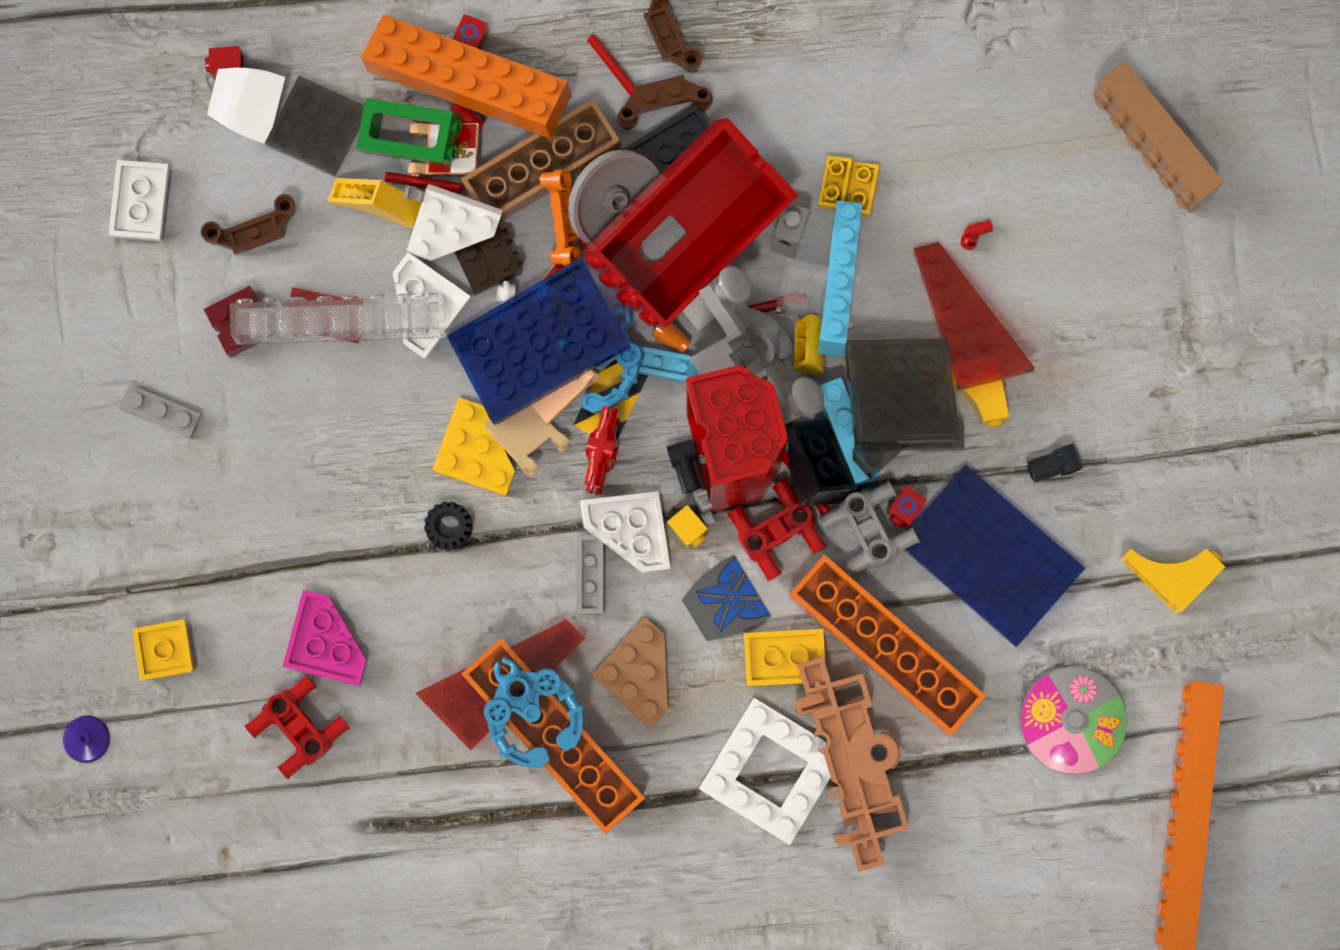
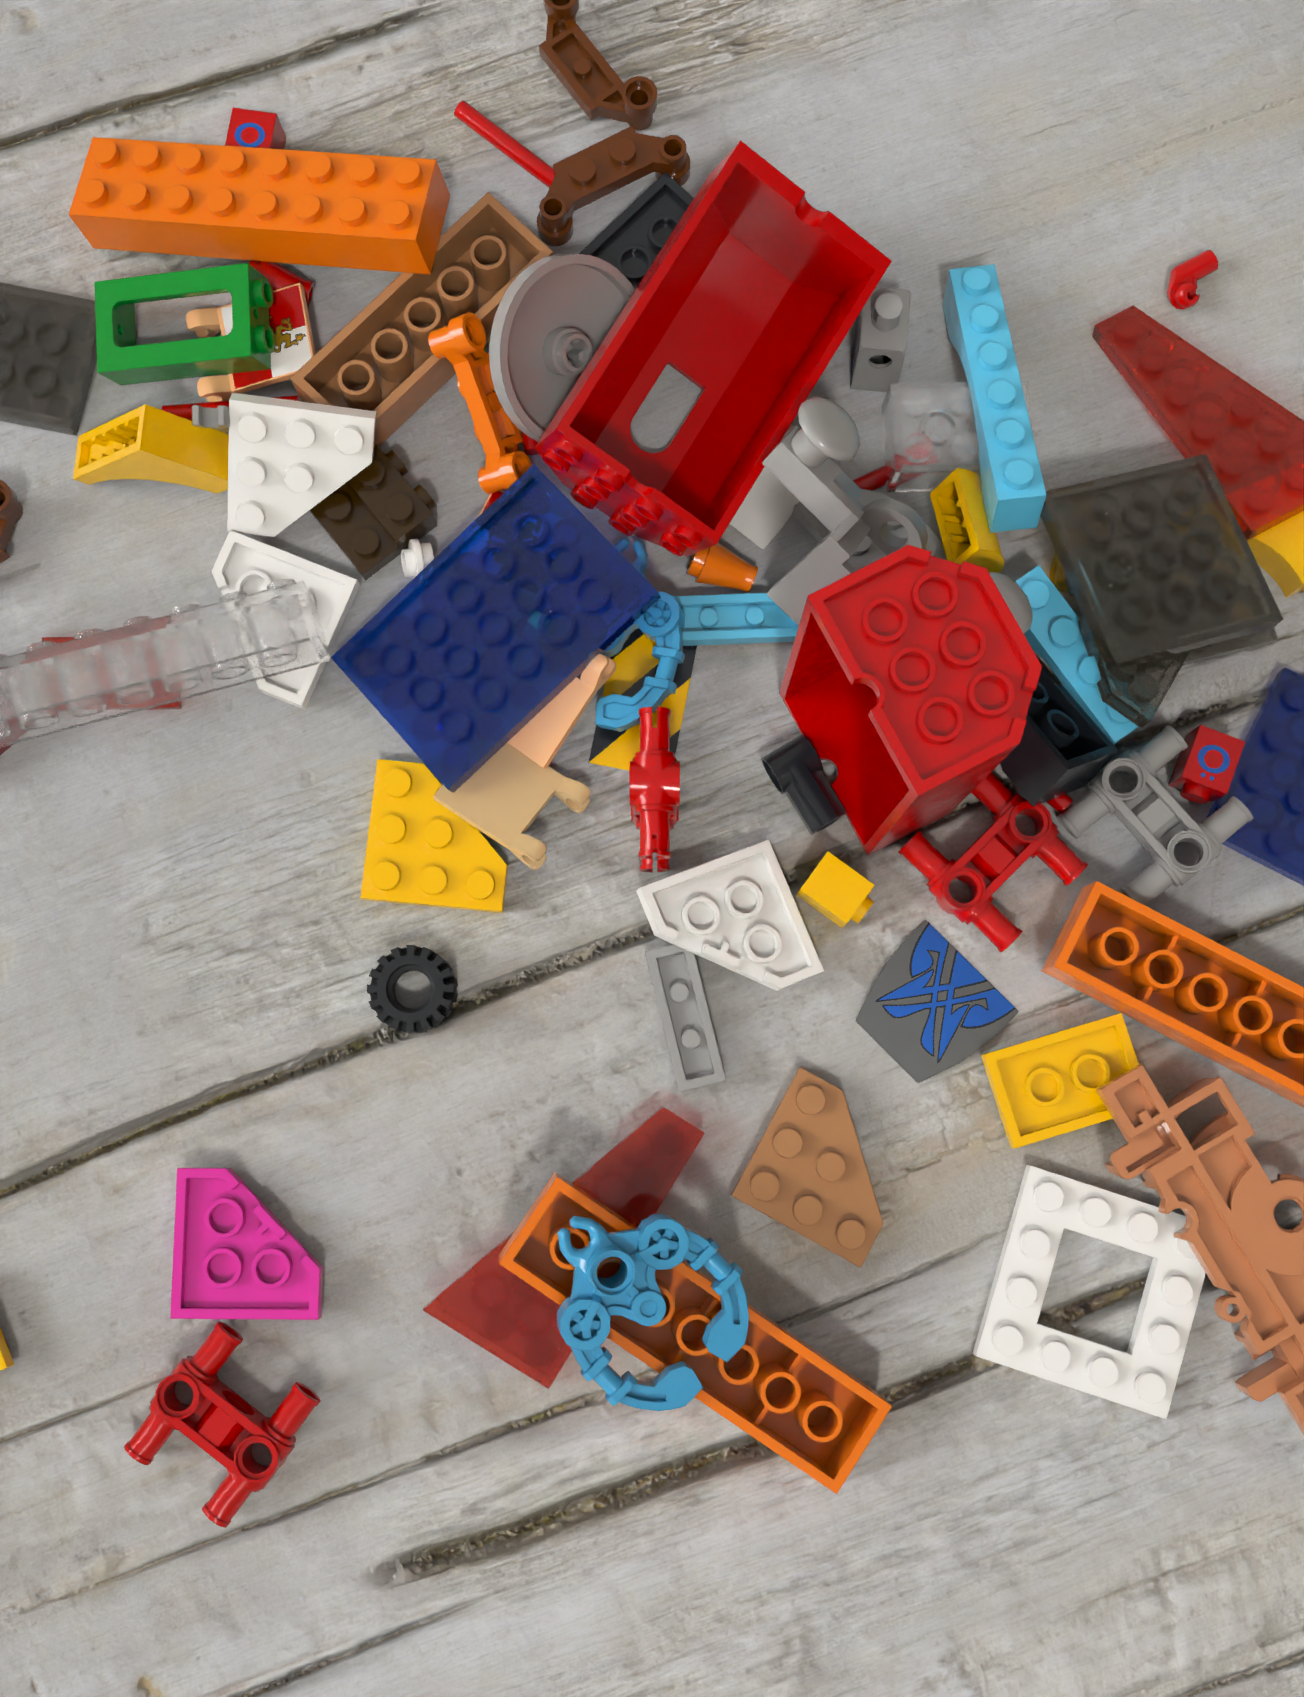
camera: 15 degrees left, 0 degrees up
(704, 506) = (858, 844): light grey bar -> none
(849, 183) = (953, 239): yellow slope -> none

